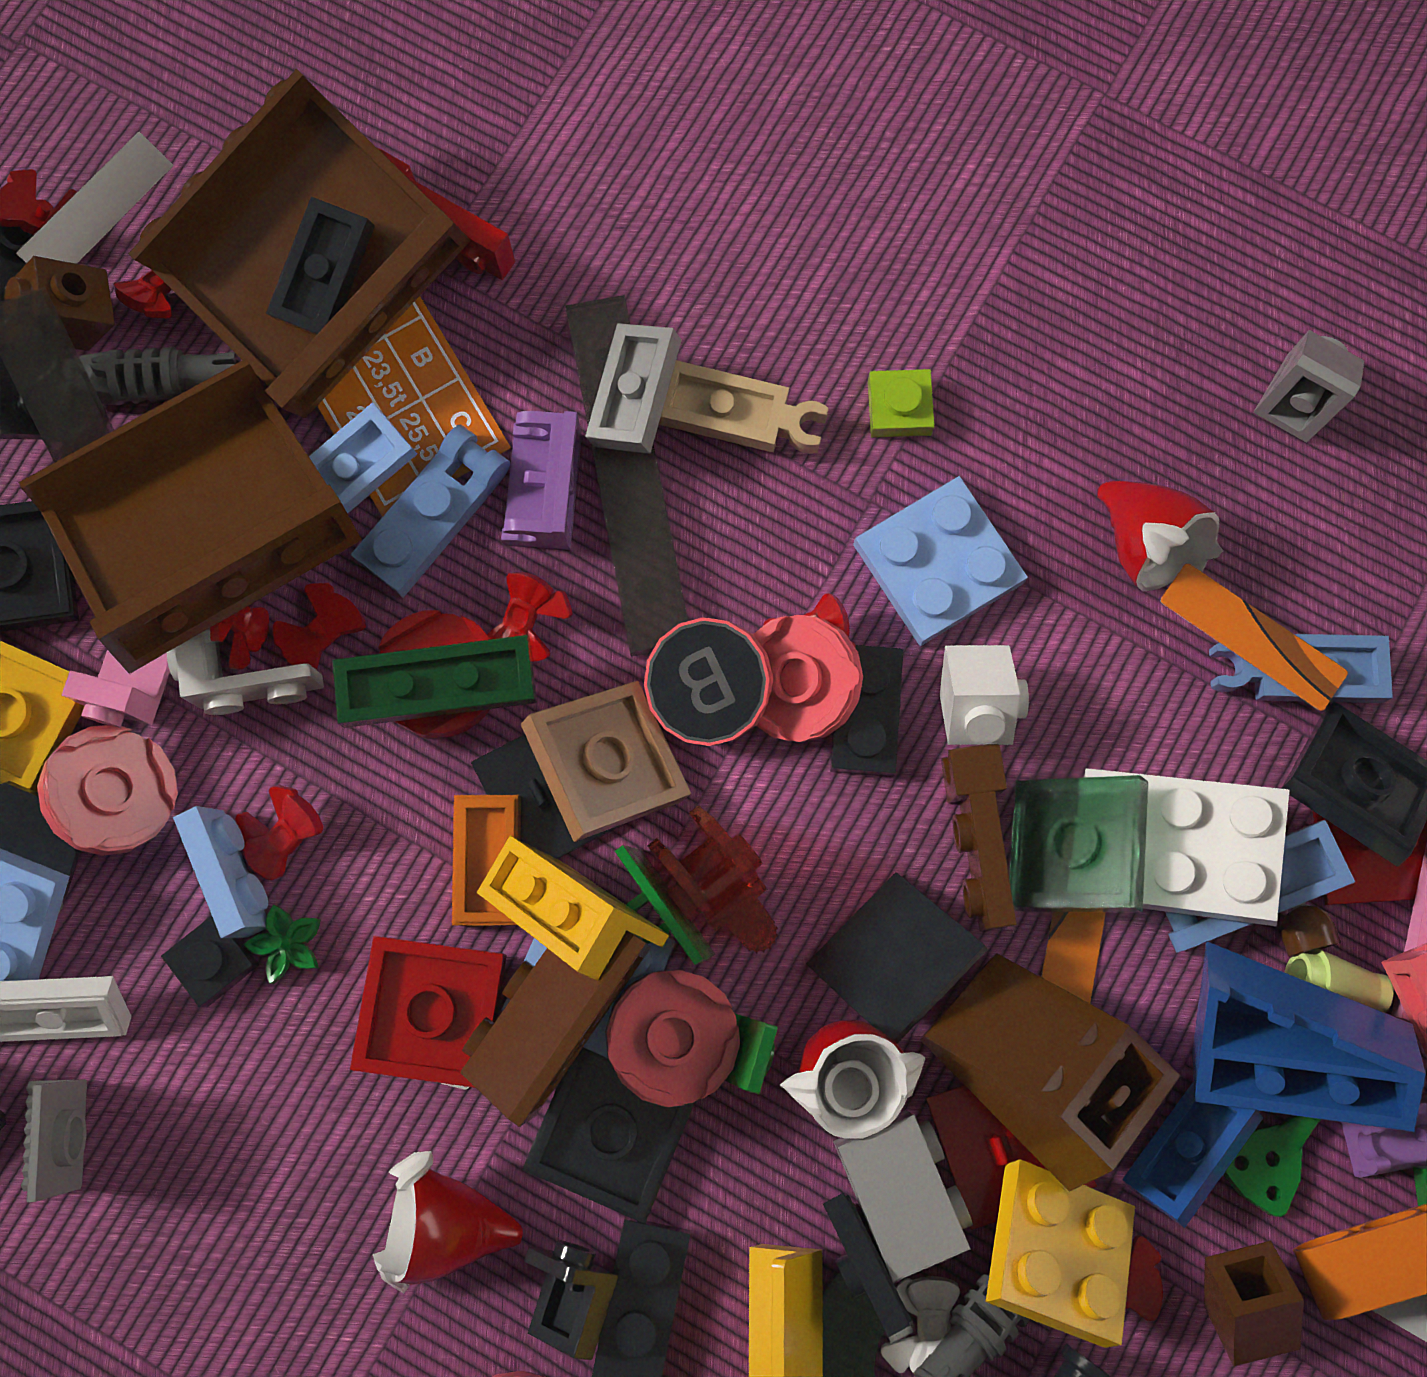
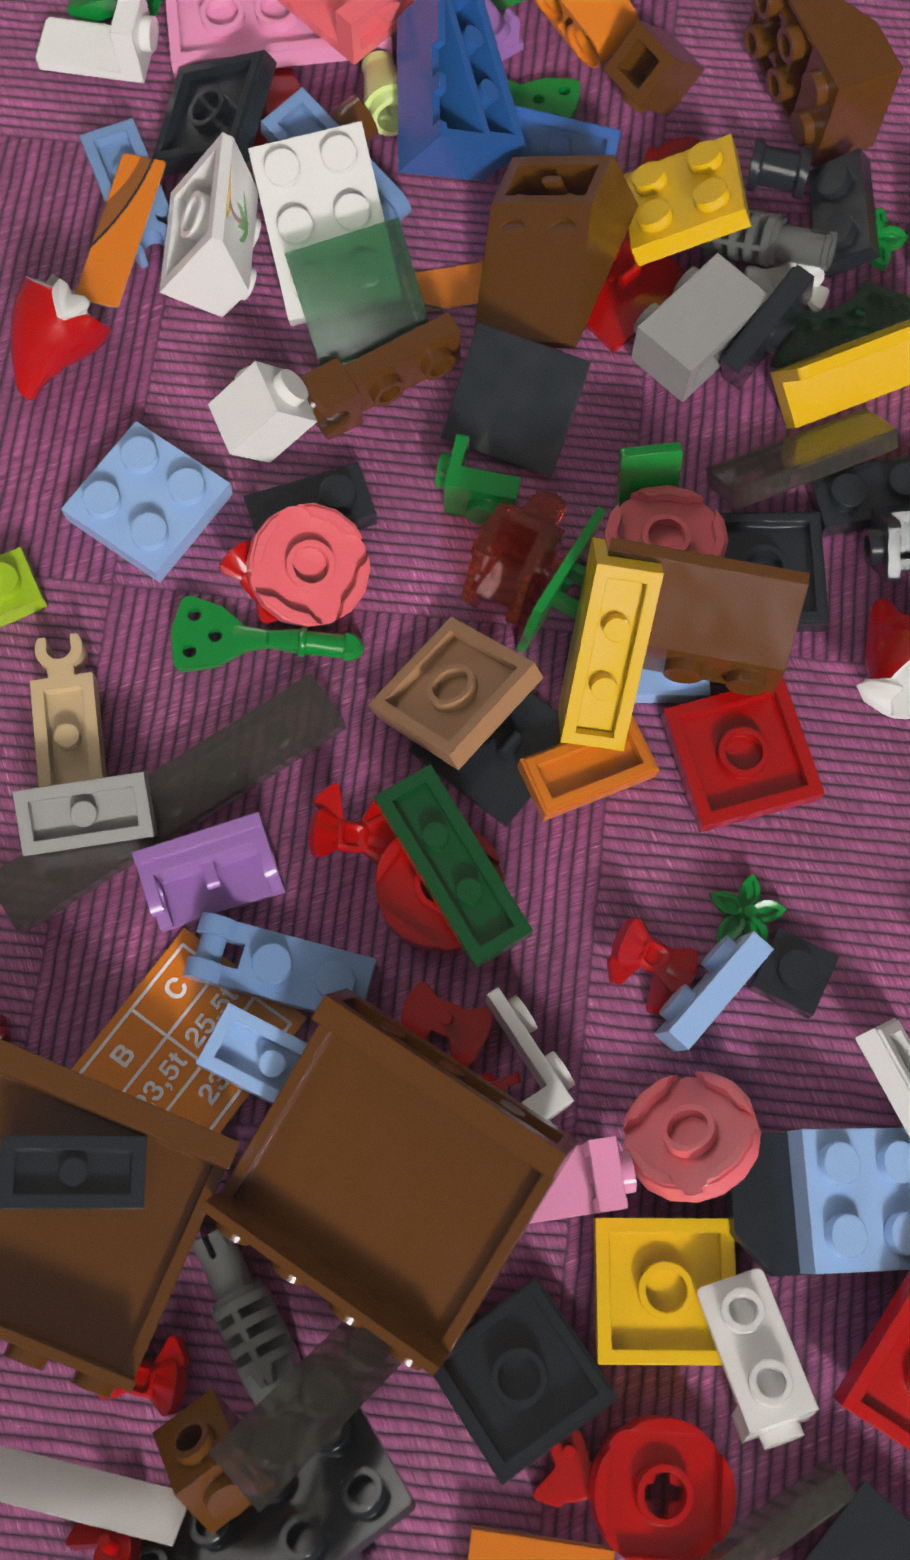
camera: 115 degrees left, 5 degrees down
(708, 681) = (344, 636): black tile -> none
(710, 1236) = (802, 458): none -> clear smoke tile
(760, 588) = (240, 639): none -> green piece
(800, 877) = (472, 490): none -> green bracket
(854, 1079) = (628, 380): white hat -> none
(1206, 721) = (212, 232): none -> white slope

